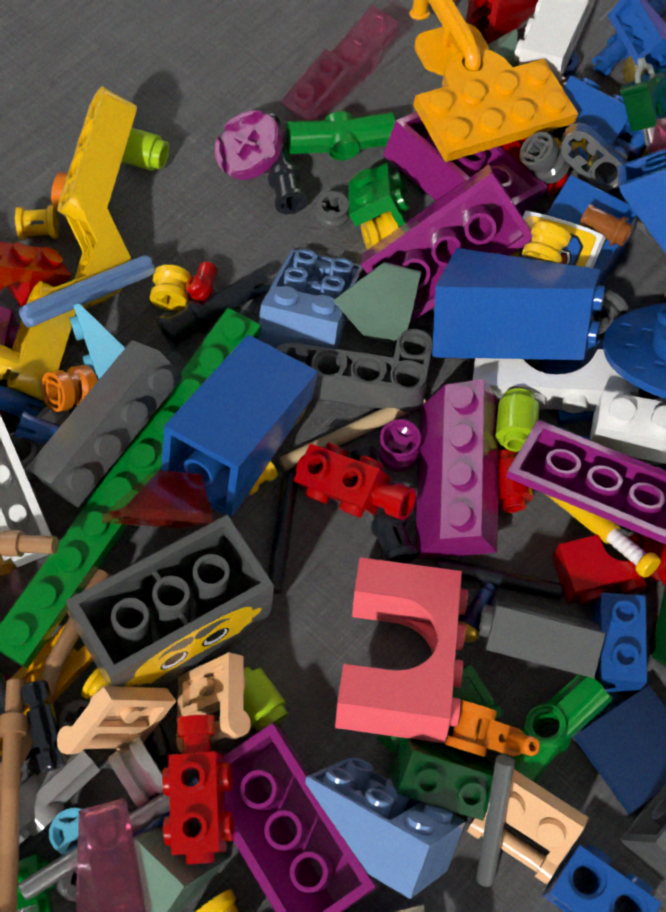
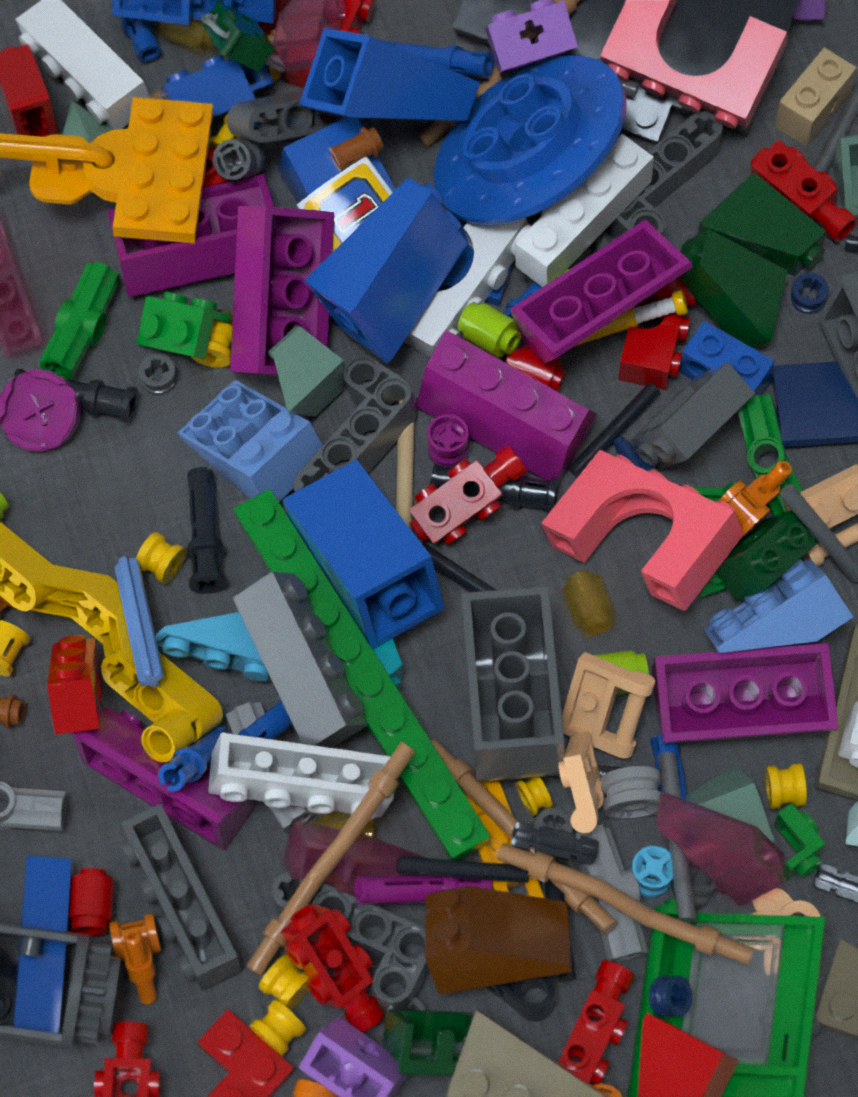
camera: 60 degrees left, 0 degrees up
(67, 388) = (234, 684): orange wheel -> none
(163, 501) = (412, 644): clear red slope -> none
(201, 285) = (176, 530): red arm -> none
(201, 801) = (689, 748): red brick -> none
(313, 640) = (589, 603): none -> clear yellow brick
(546, 242) = (351, 206): yellow wheel -> none

